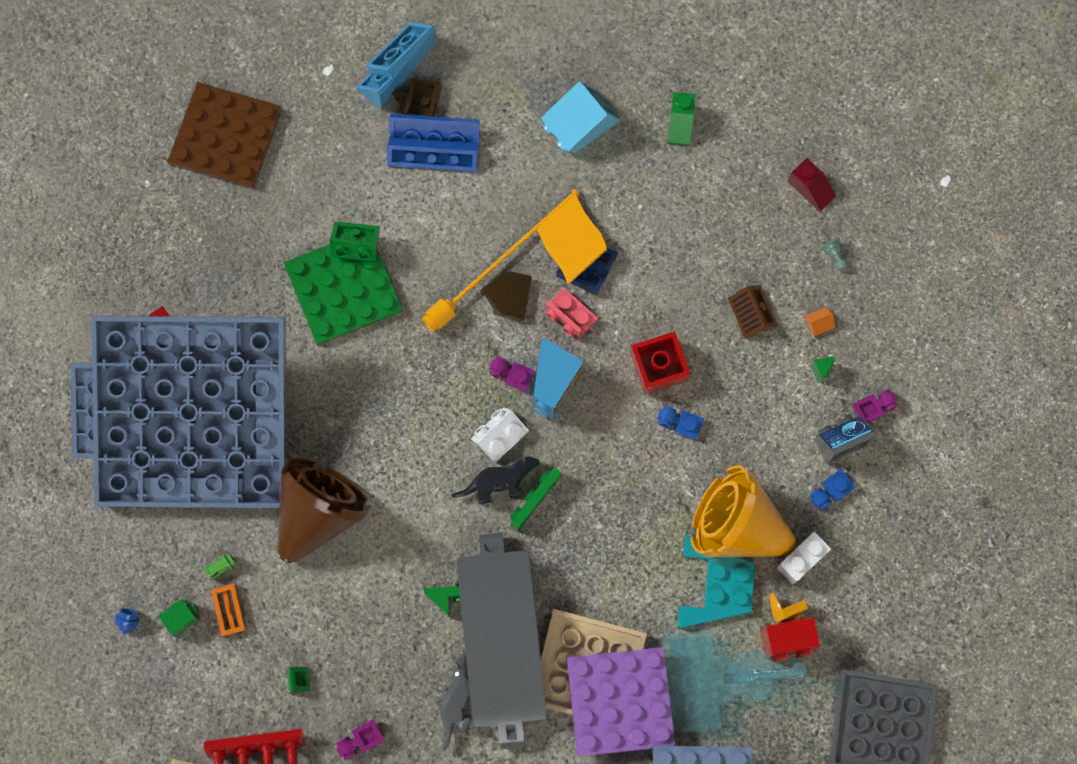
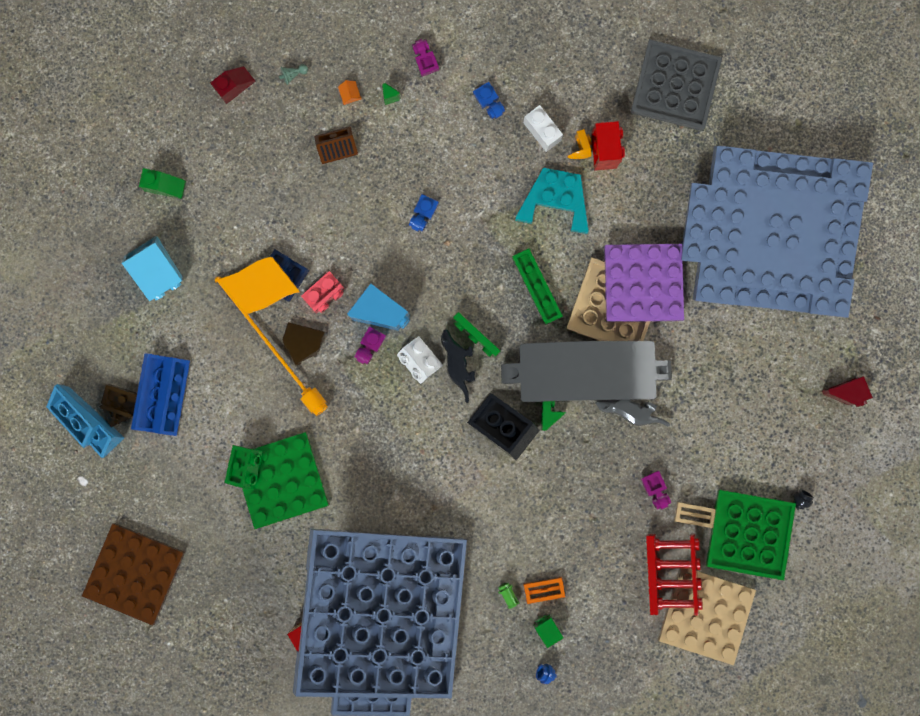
camera: 85 degrees left, 10 degrees up
(298, 679) = (604, 537): green slope -> none
(315, 508) = (469, 512): reddish brown cone -> none
(425, 542) = (503, 426): none -> black slope
(603, 569) = (537, 286): none -> green plate
(659, 363) = (373, 223): red brick -> none
(697, 678) = (627, 221): clear light blue plate -> none
(740, 520) = (509, 175): light orange cone -> none
(844, 438) = (449, 83): slope -> none

